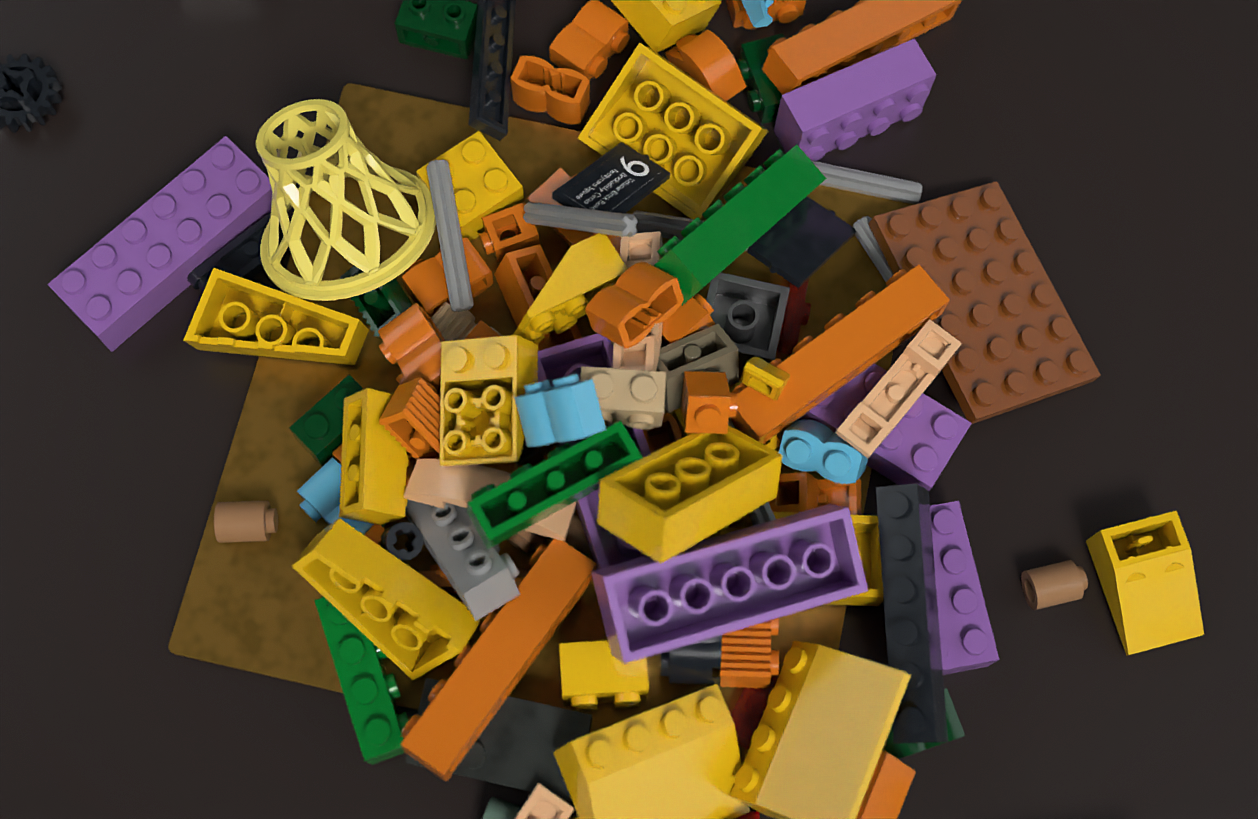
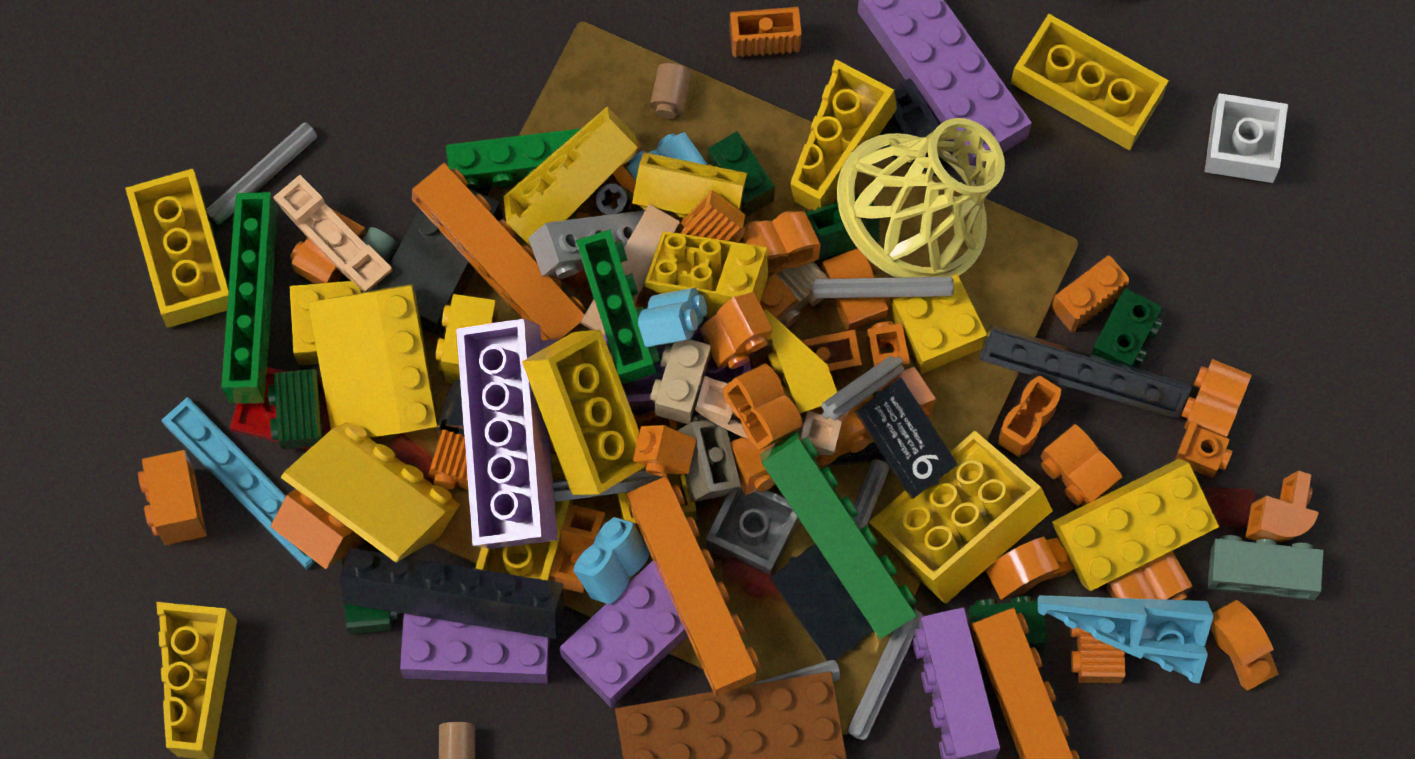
camera: 105 degrees right, 0 degrees up
(154, 433) = (765, 31): none -> orange brick
(166, 95) = (1089, 81): none -> yellow brick
(403, 59) = (1090, 293): none -> orange brick
(555, 340) = (736, 331): none -> orange brick
(764, 377) = (677, 506): yellow slope -> none
(898, 389) = (646, 628): light nougat slope -> none

